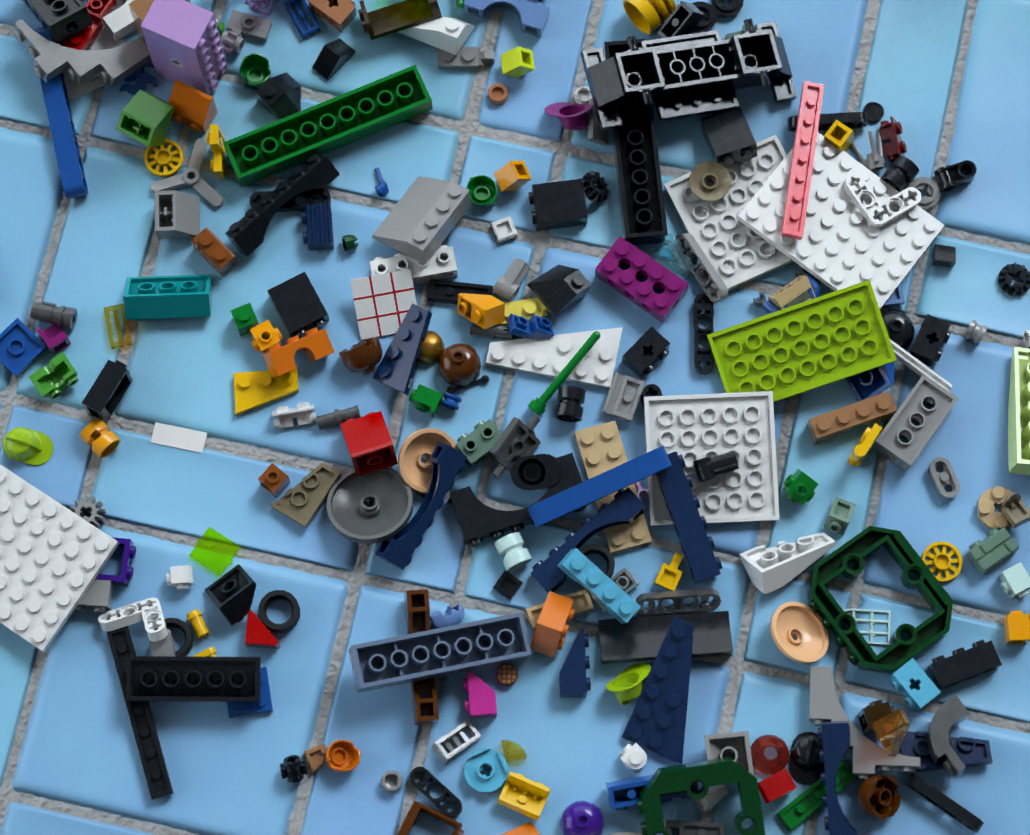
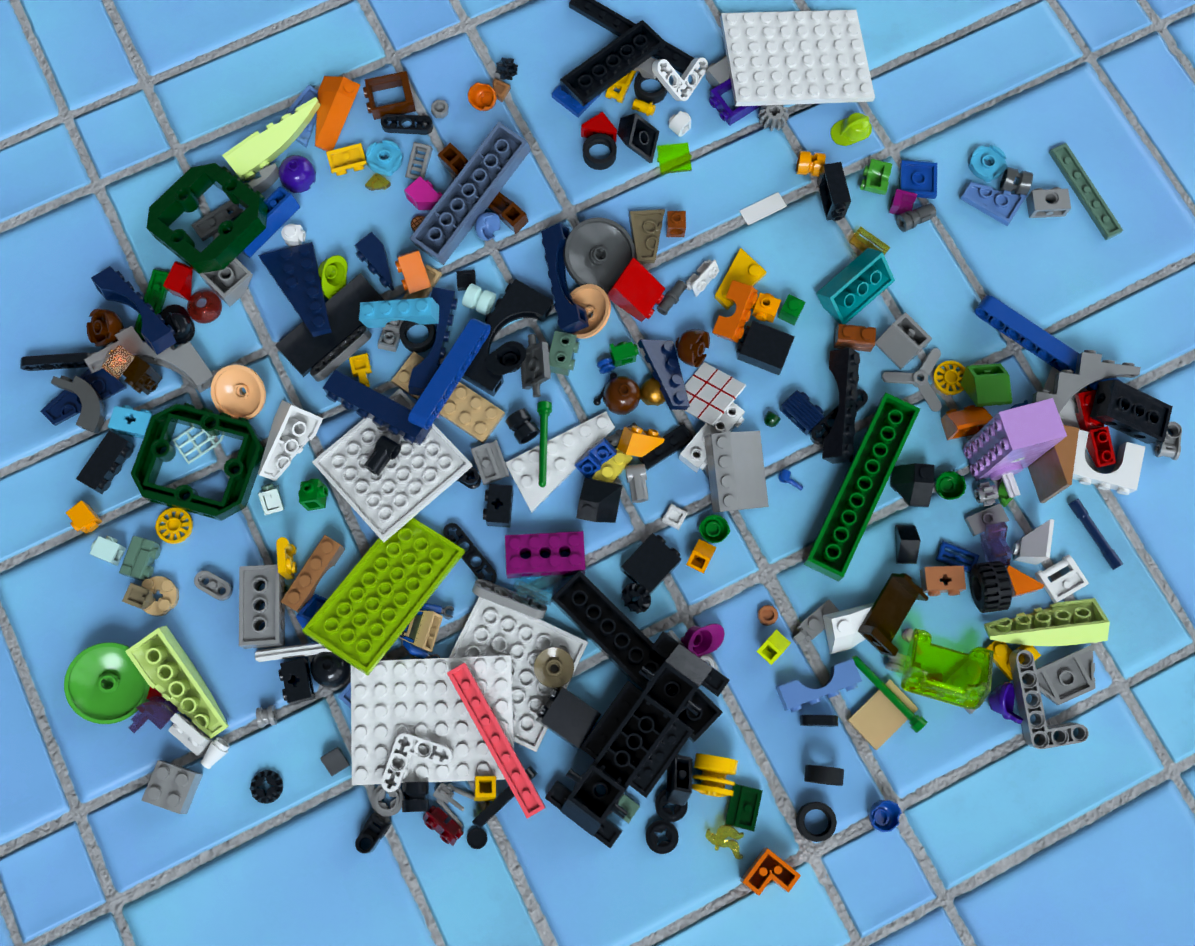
camera: 140 degrees right, 0 degrees up
(215, 139) = (927, 405): yellow plate -> none

